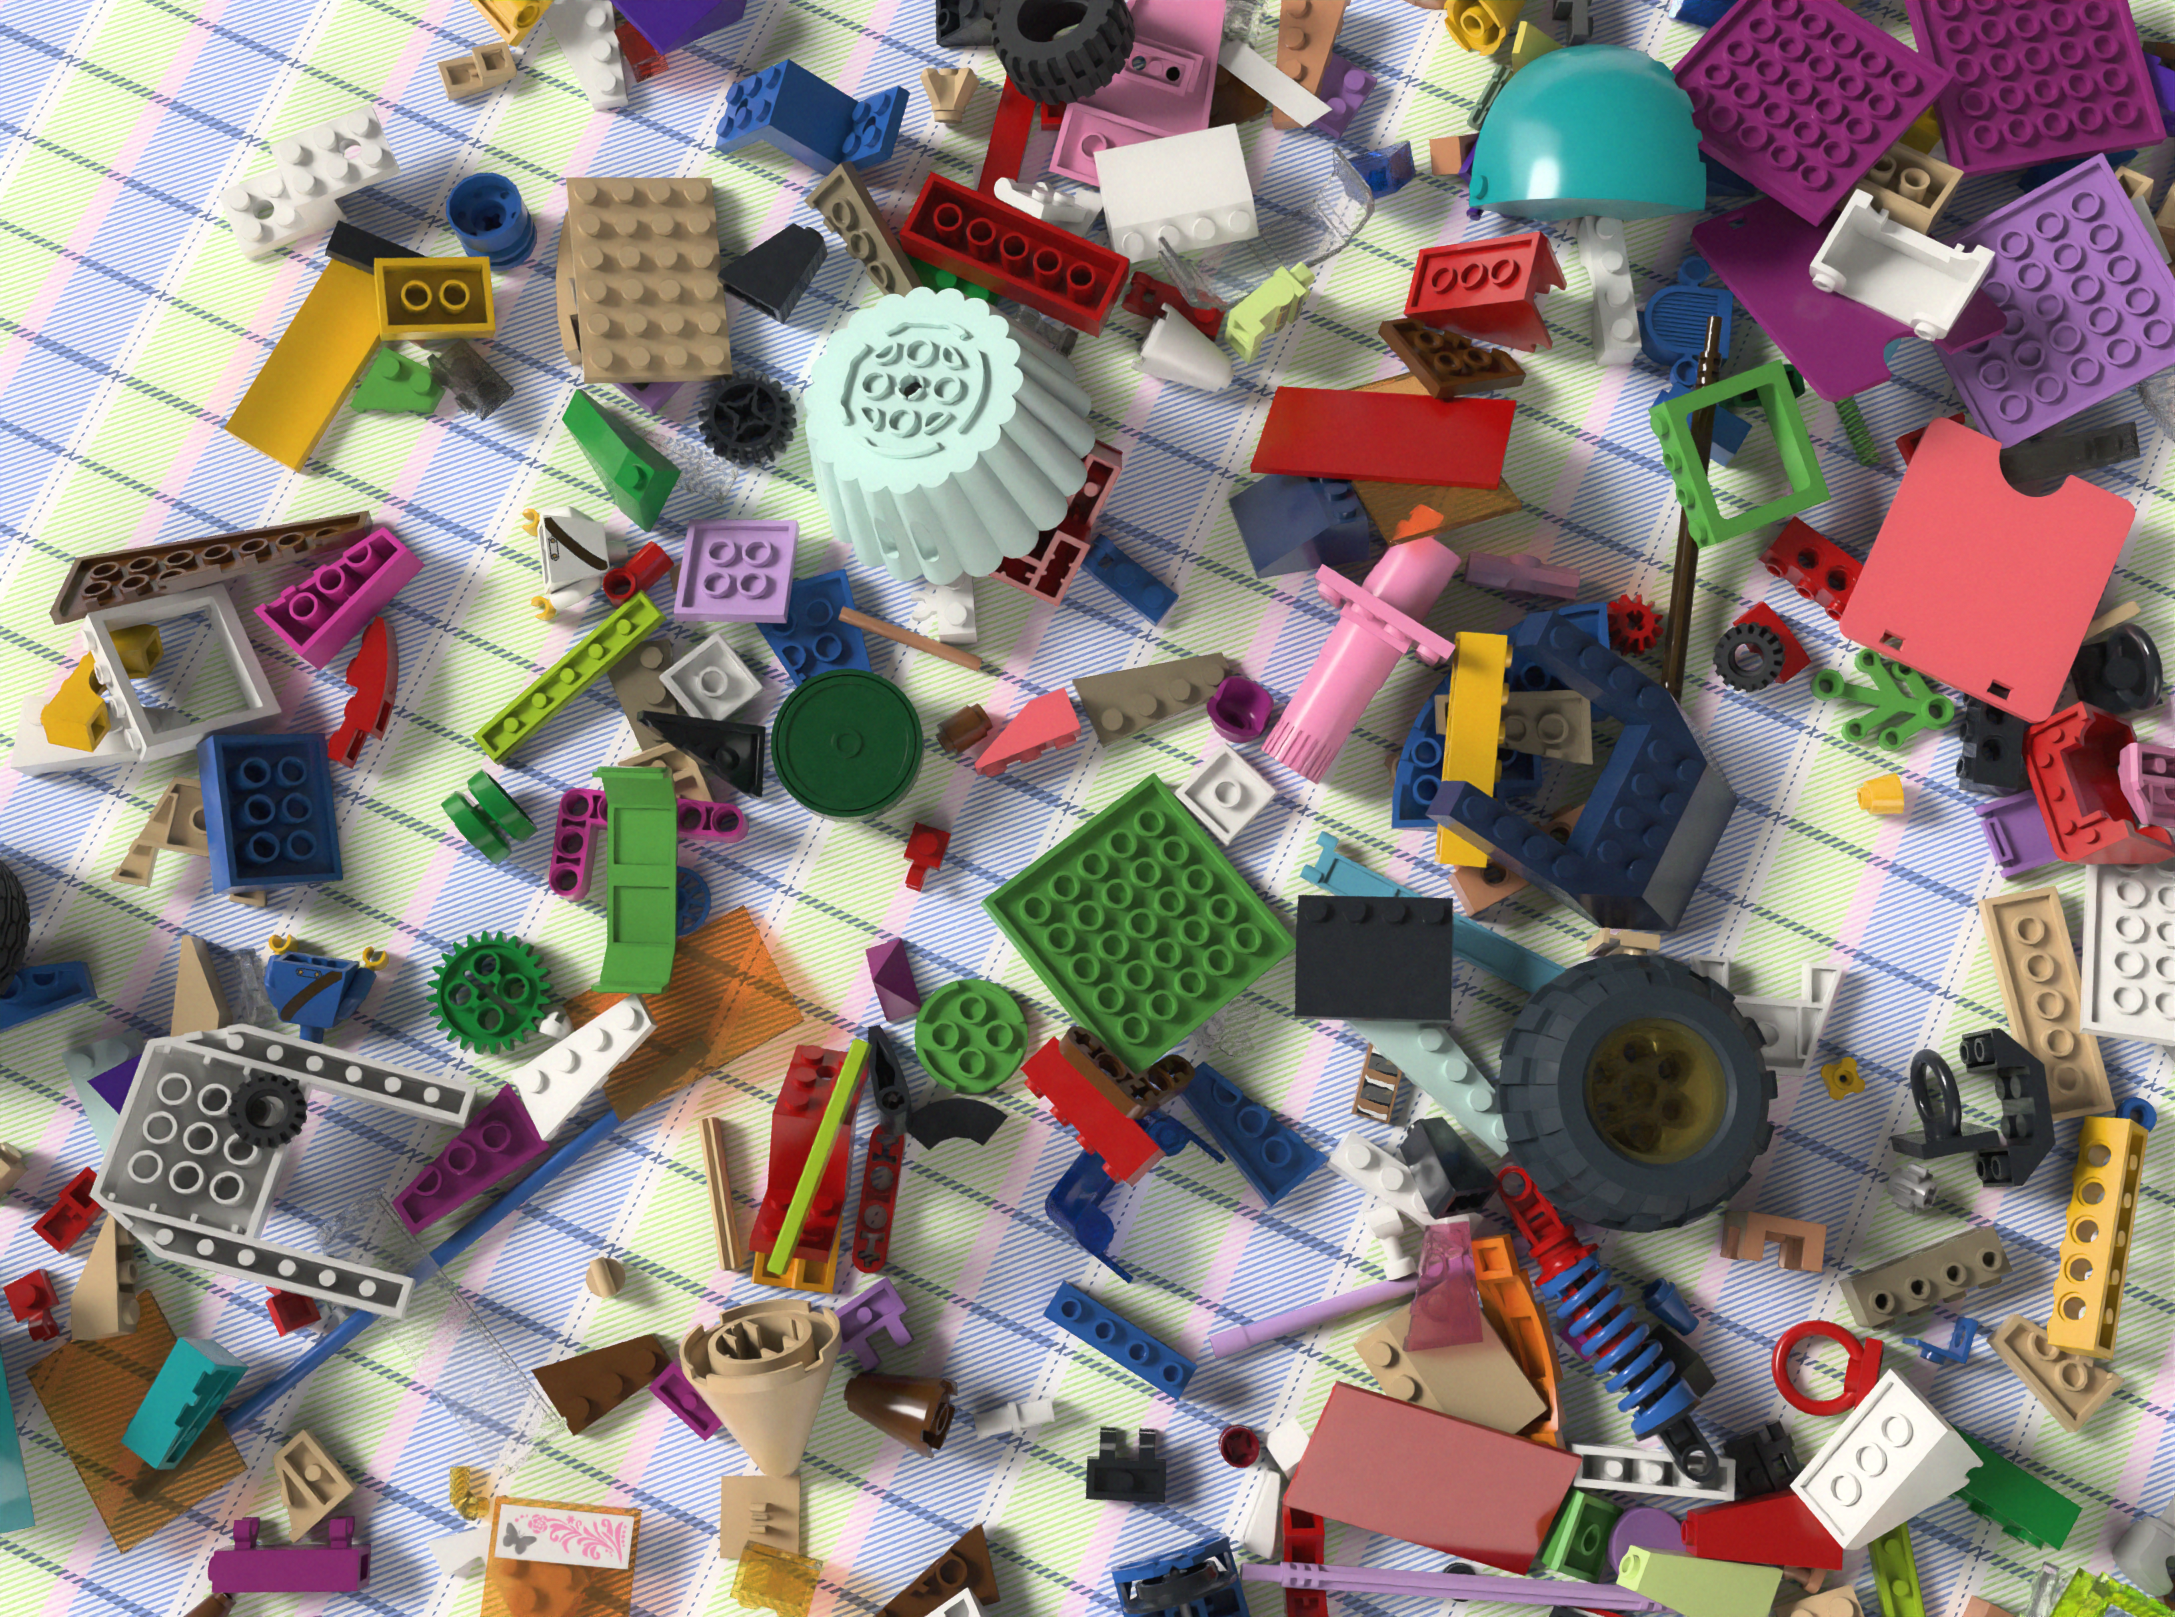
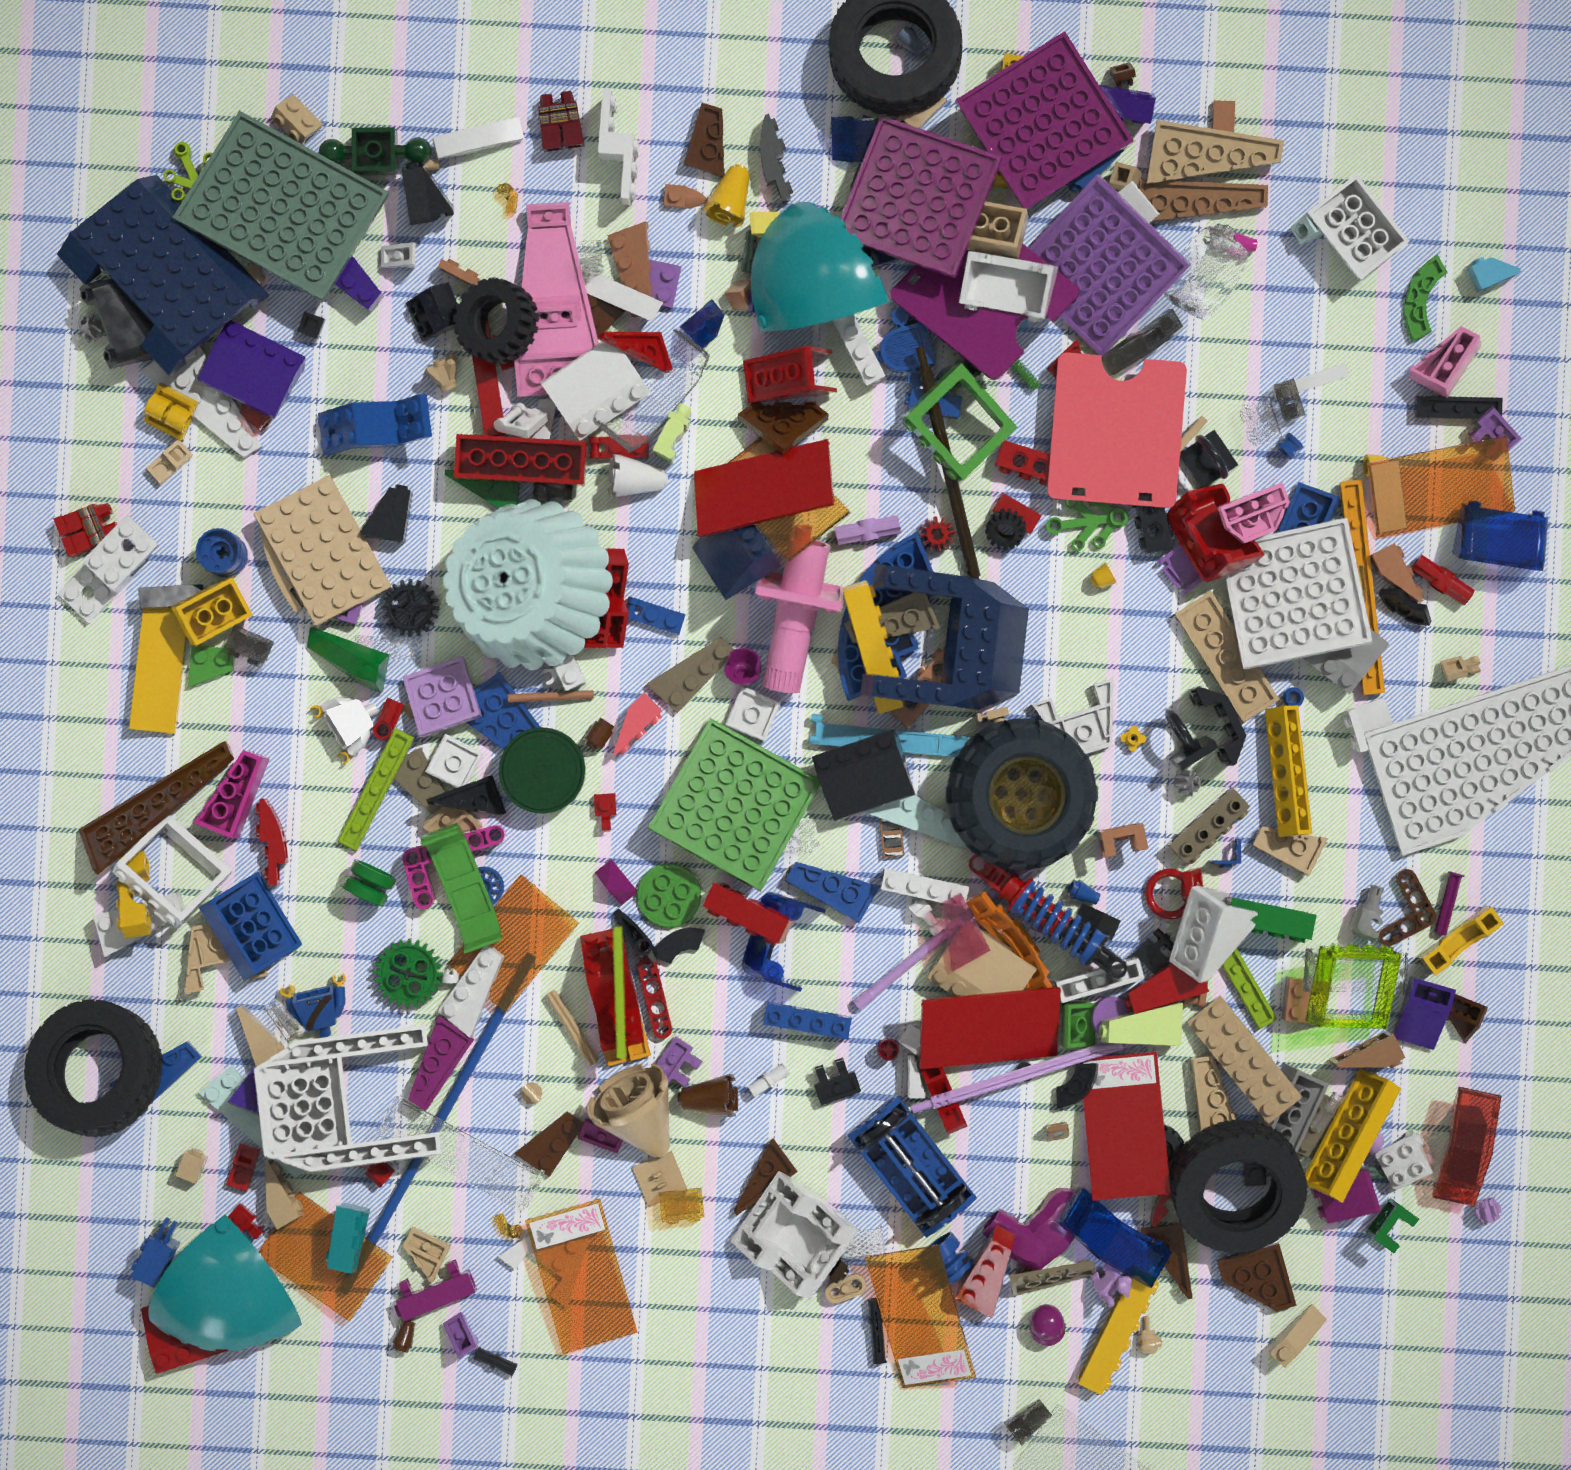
camera: 20 degrees left, 10 degrees up
(259, 1087) = (340, 1089): black tyre -> none
(298, 105) = (90, 523): none -> red hips
(856, 218) = (432, 476): dark tan wing -> none
(1089, 1055) = (759, 894): reddish brown beam -> none
(1275, 163) = (642, 345): none -> red wing
(1446, 1169) = (941, 870): black slope -> none

